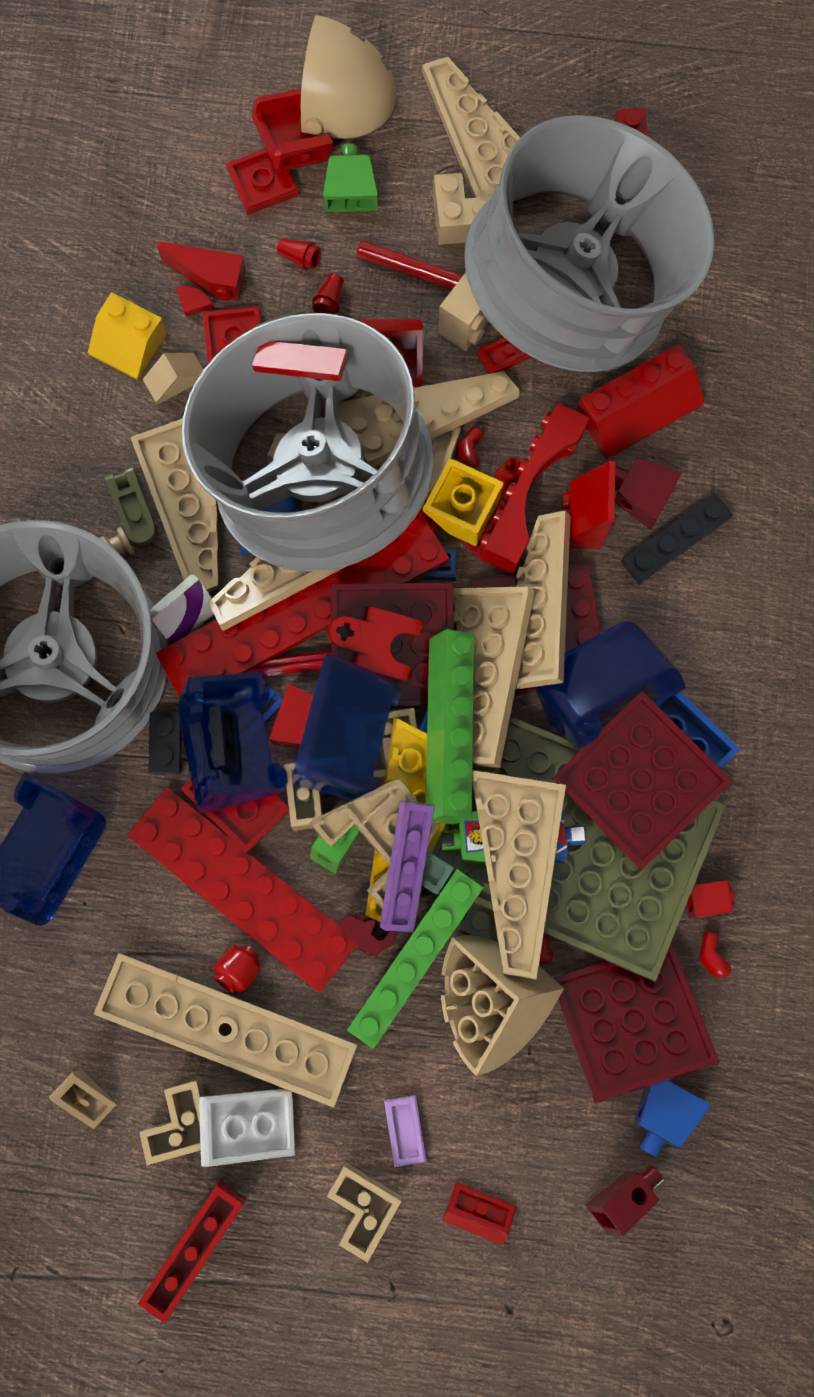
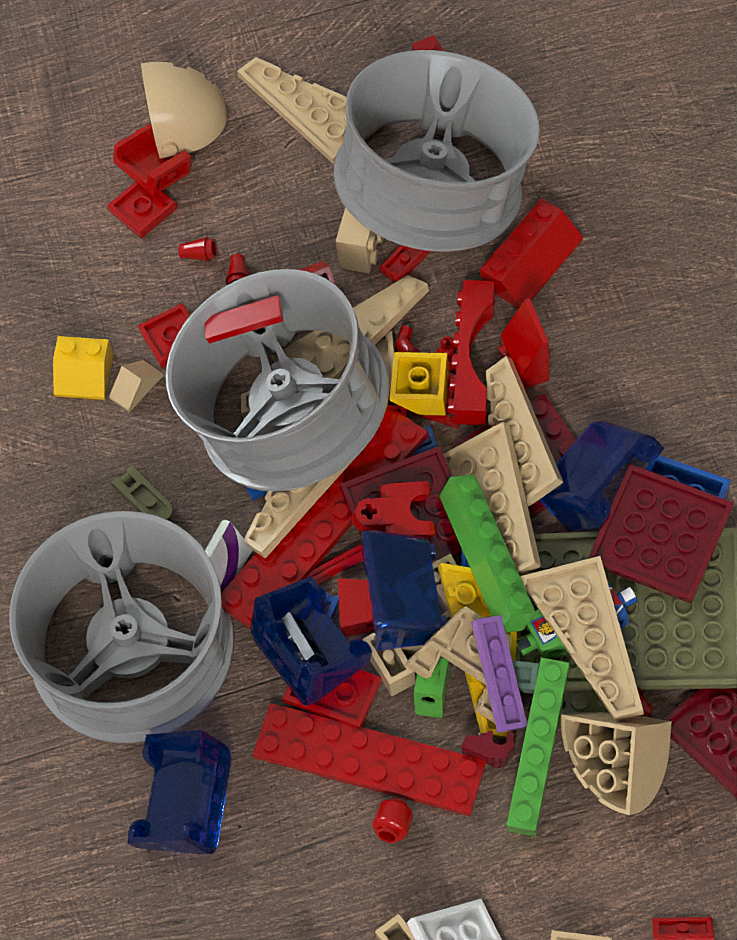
camera: 10 degrees left, 15 degrees down
(164, 743) = (252, 671): black plate -> none
(182, 502) = (183, 468): tan wing -> none
(193, 300) = (125, 320): red tile -> none
(211, 270) = (128, 291): red slope -> none
(259, 1042) = (437, 871): tan piece -> none
(350, 182) = (218, 181): bright green torso -> none
(405, 1131) = (591, 894): lavender tile -> none
(408, 265) = (293, 225): red axle -> none
(452, 210) = (312, 171): tan brick -> none
(645, 489) = (565, 319): dark red torso -> none
(676, 538) = (607, 347): black plate -> none

